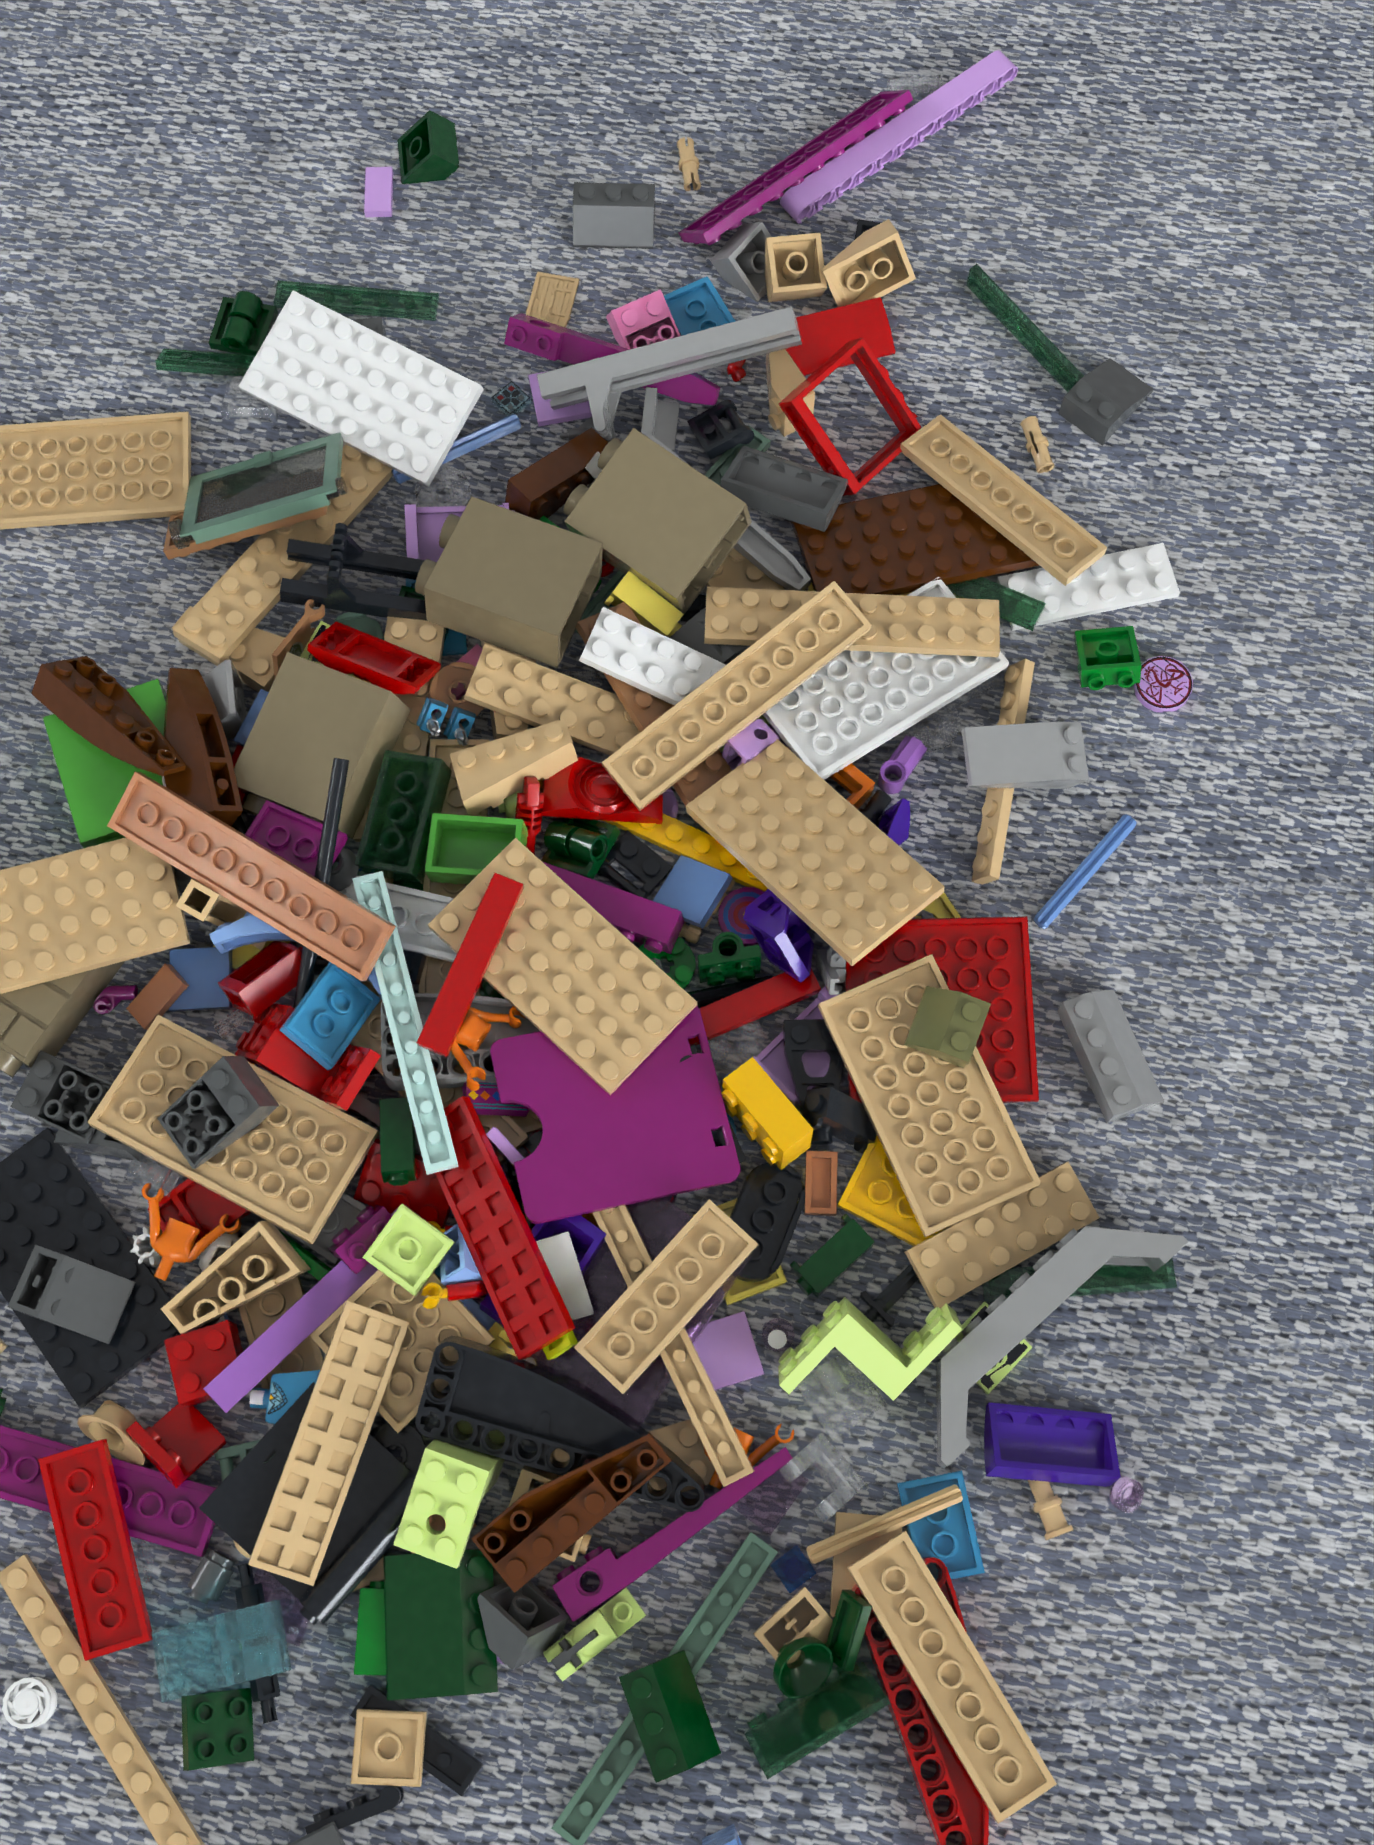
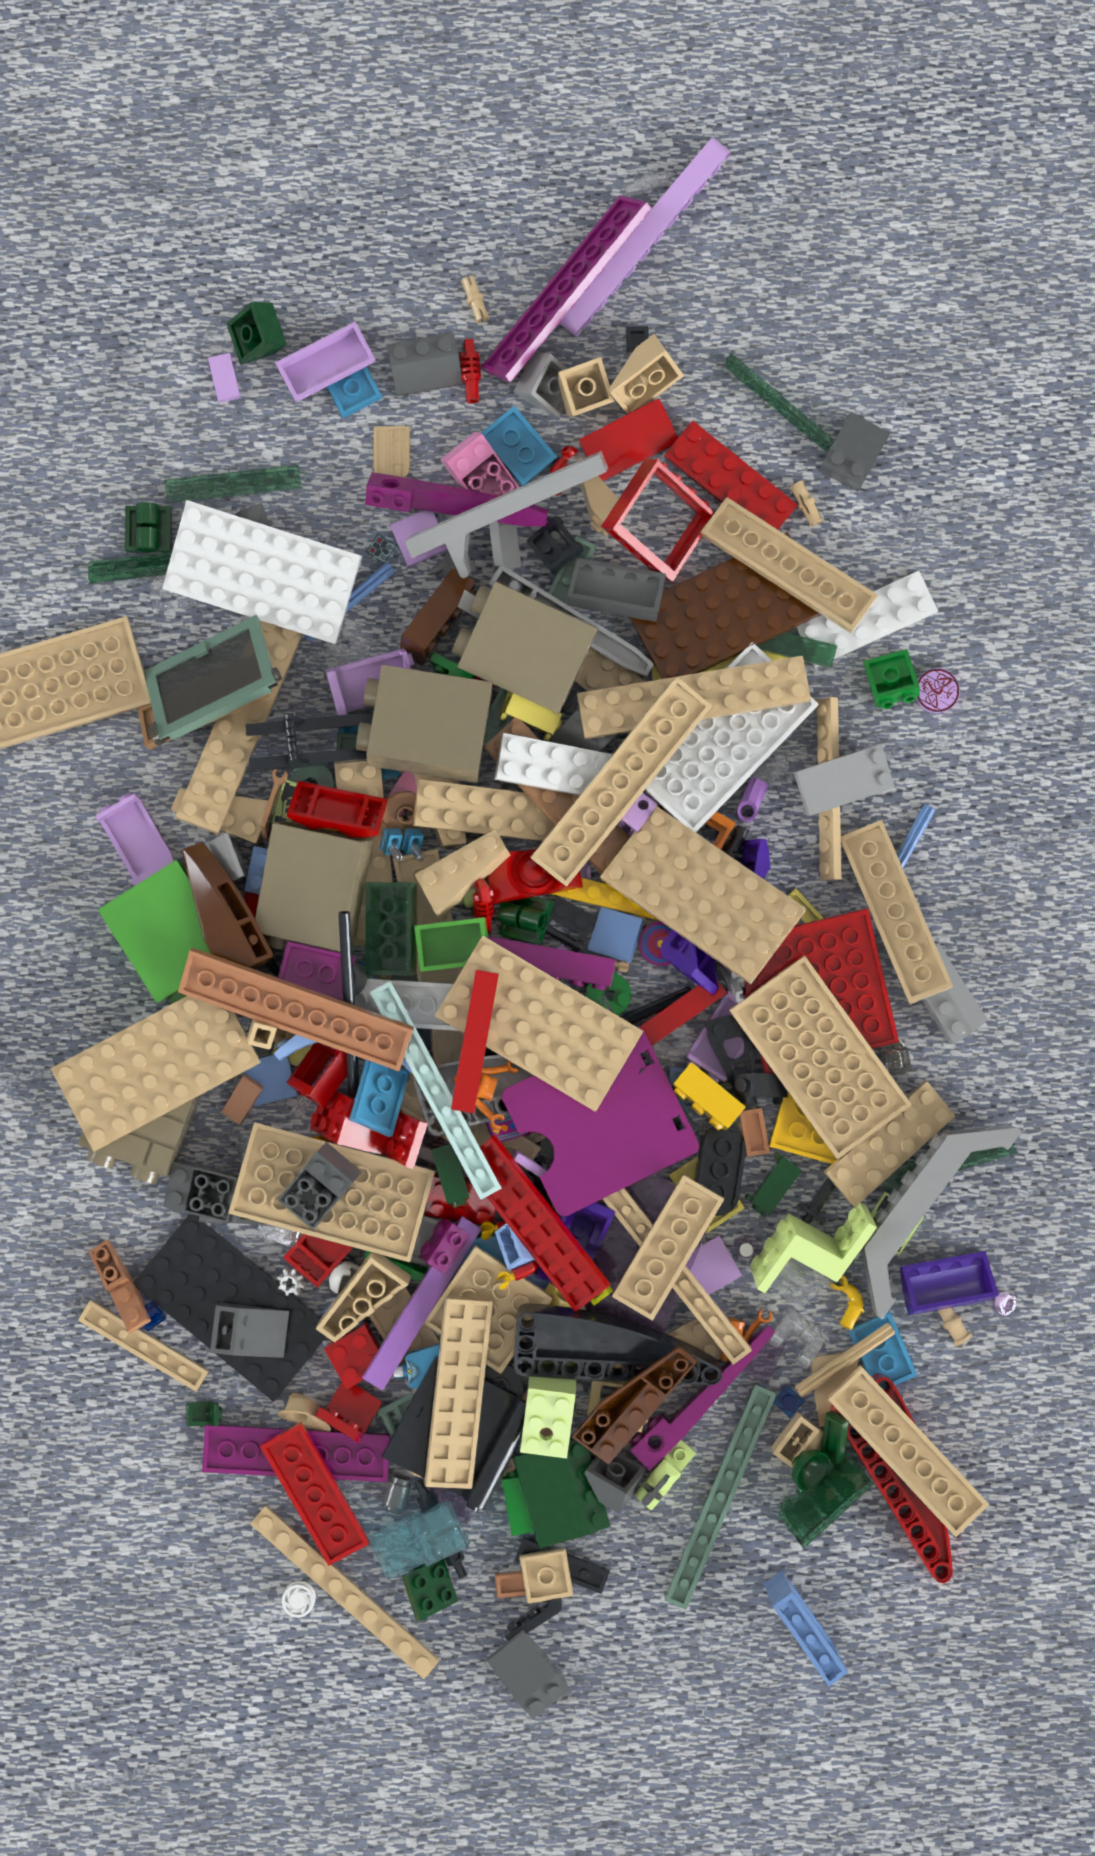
camera: 15 degrees left, 15 degrees up
(104, 714) = (150, 903): reddish brown wedge -> none
(112, 996) = (207, 1105): magenta arm -> none
(120, 644) = (135, 837): none -> lavender panel
(178, 1238) = (312, 1276): orange piece -> none
(333, 1752) = (509, 1584): none -> nougat tile
(408, 1249) = (479, 1251): yellowish green tile -> none
(498, 191) = (325, 362): none -> lavender slope
(523, 228) = (354, 392): none -> dark azure tile
(566, 1273) = (592, 1243): white sticker -> none
(665, 234) = (470, 371): none -> red hinge
(670, 1716) = (727, 1516): dark green slope -> none
(742, 962) = (666, 986): dark green plate -> none
(913, 1450) = (855, 1303): none -> yellow piece
(939, 388) = (727, 475): none -> red plate
(947, 1025) = (826, 1009): olive slope -> none
(1031, 1120) = (896, 1058): none -> clear smoke brick
(1064, 933) = (896, 912): none -> tan plate

